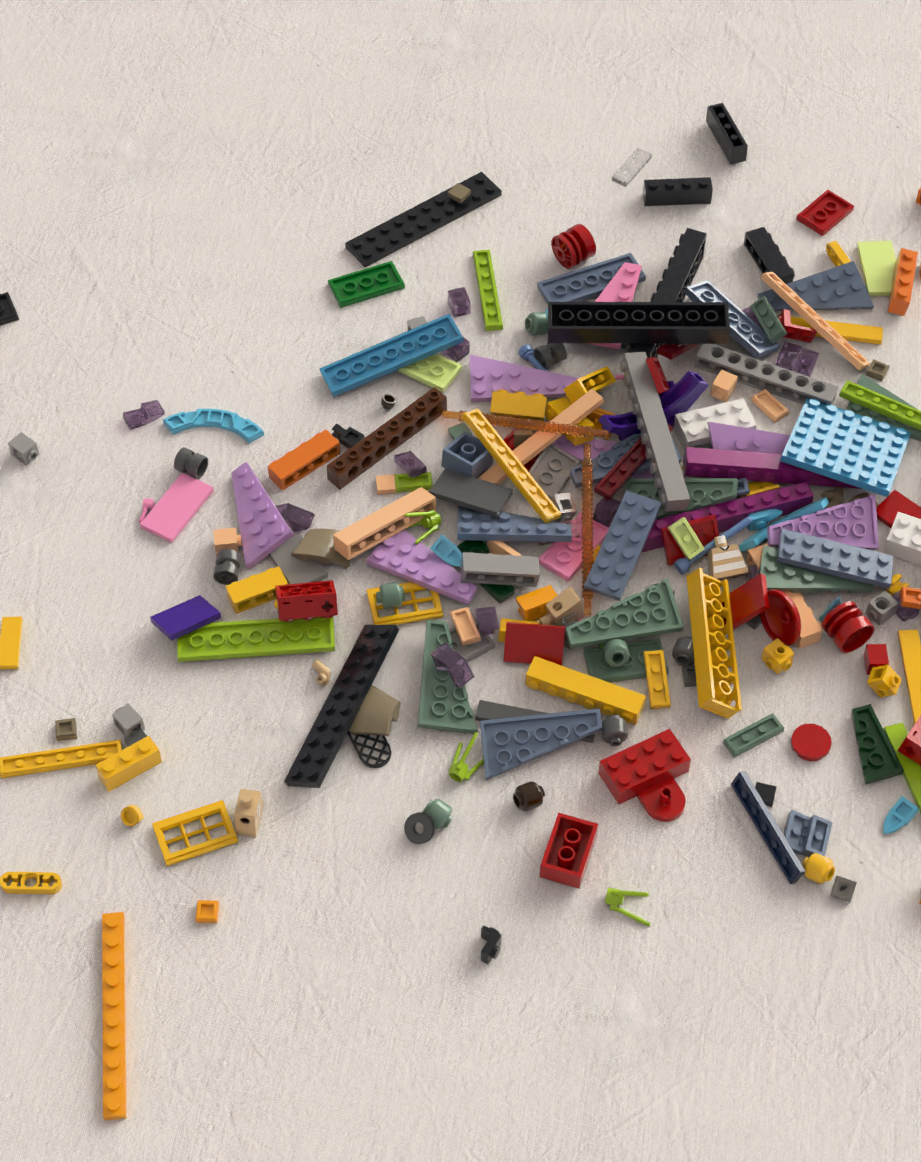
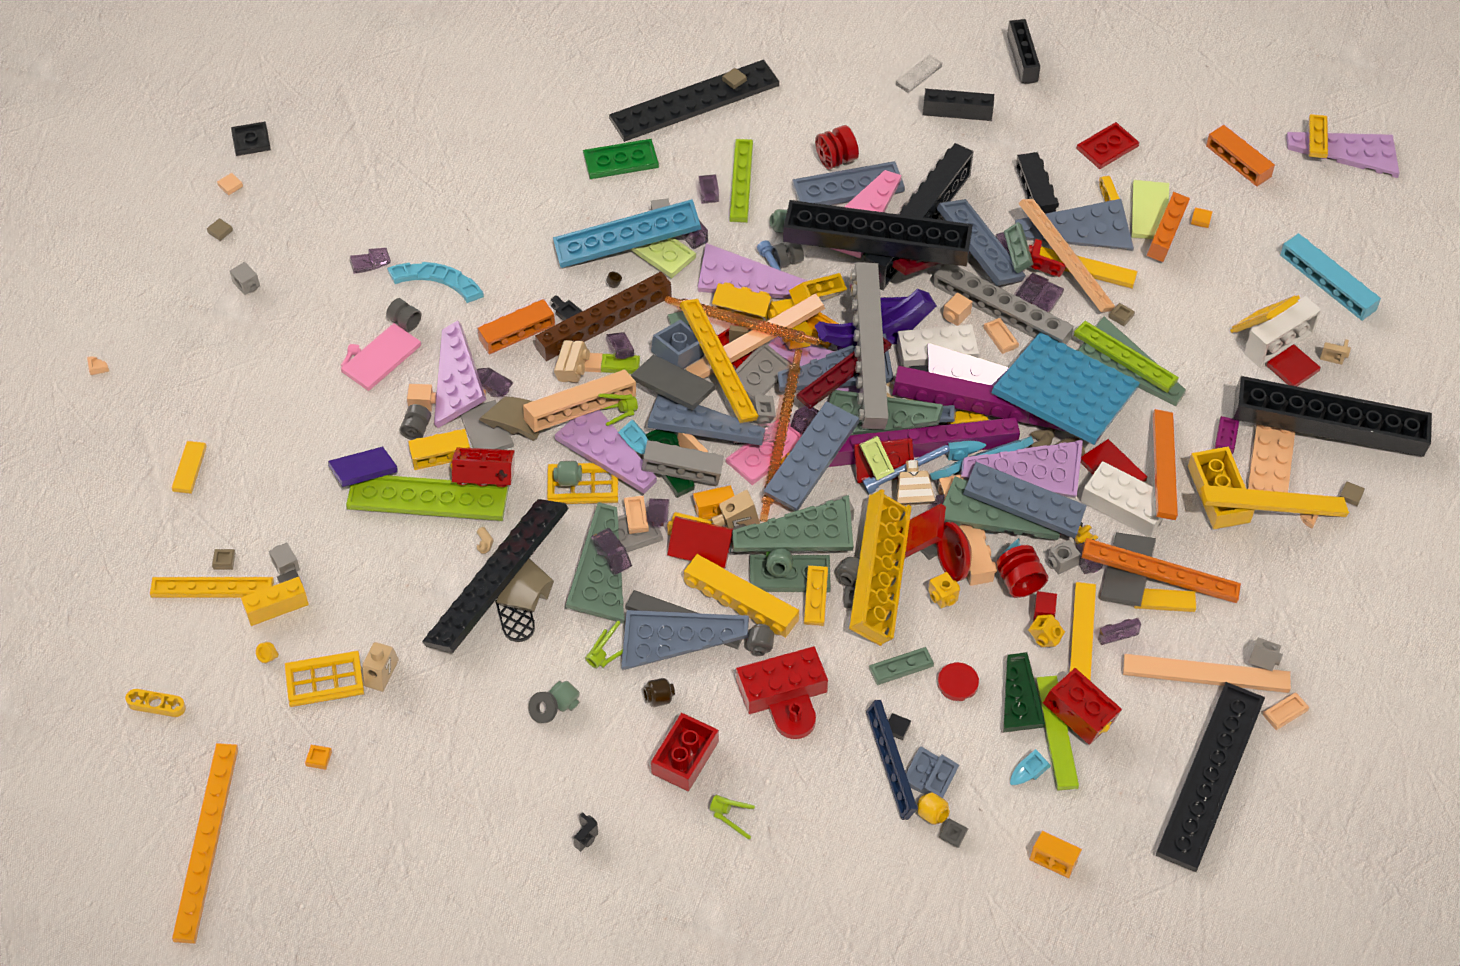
camera: 10 degrees right, 0 degrees up
(366, 486) = (571, 361): none -> tan brick
(657, 375) = (886, 288): red tile -> none

